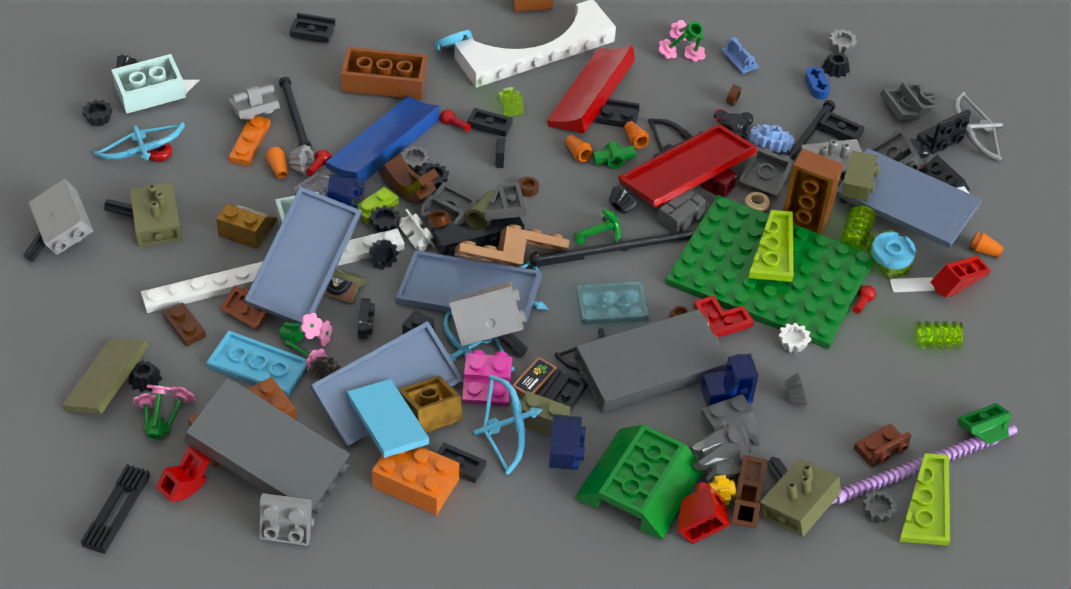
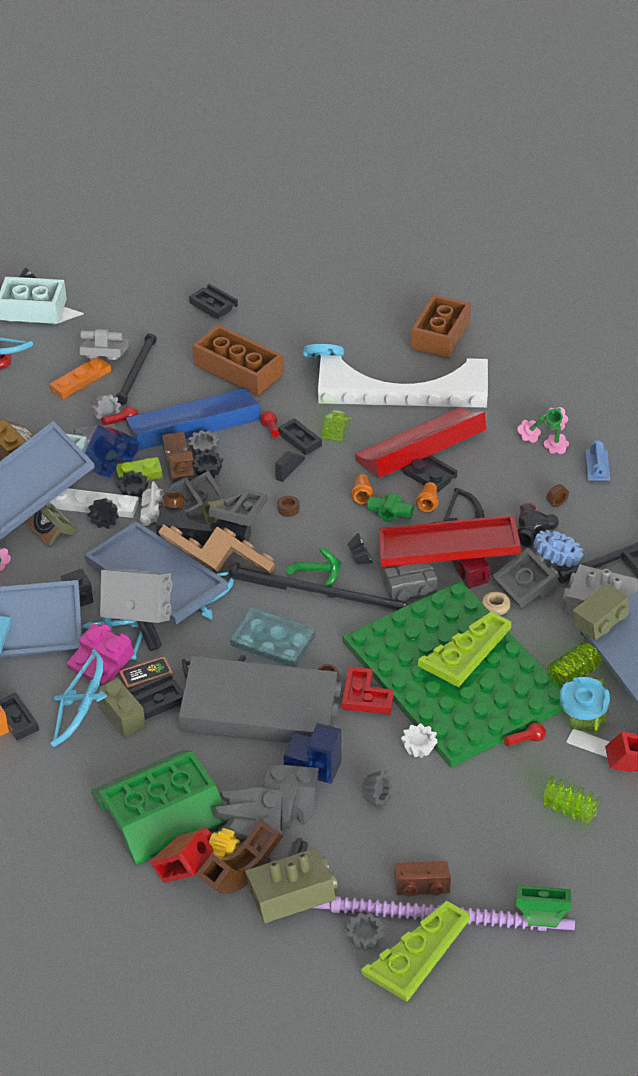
camera: 35 degrees right, 5 degrees down
(277, 161) = (84, 403): orange cone -> none
(366, 311) = (42, 560): black plate -> none
(433, 403) = (31, 655): pearl gold slope -> none
(567, 442) = (110, 737): clear blue brick -> none
(812, 190) = (535, 607): dark orange brick -> none

